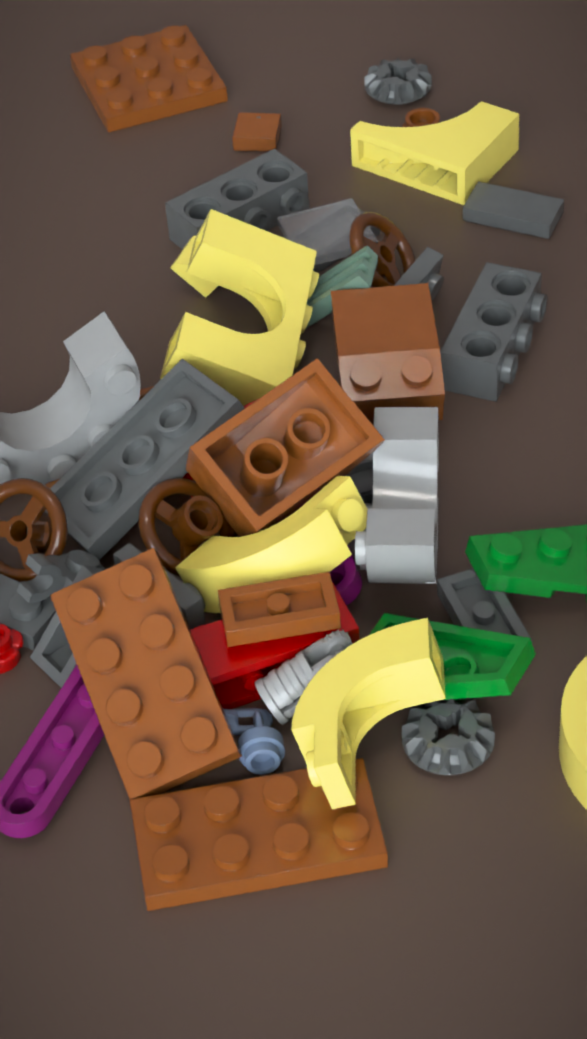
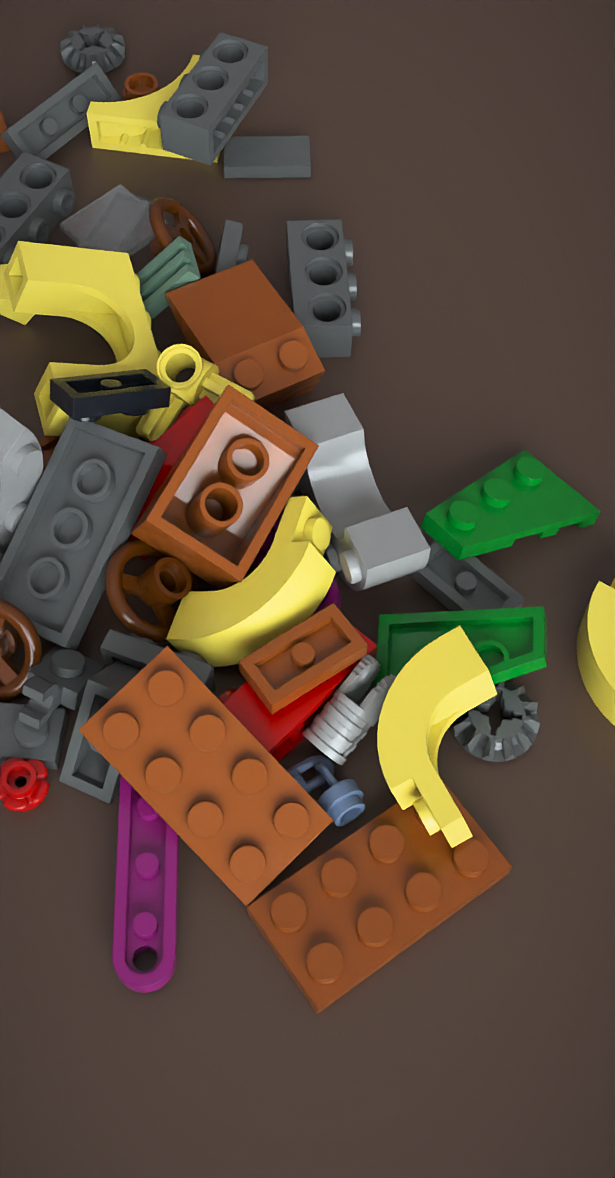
camera: 30 degrees left, 15 degrees up
(242, 355) = (95, 395): none -> black plate
(295, 351) = (183, 394): none -> light yellow axle
(328, 130) = (60, 116): none -> dark grey plate
(471, 139) = (213, 98): none -> dark grey brick

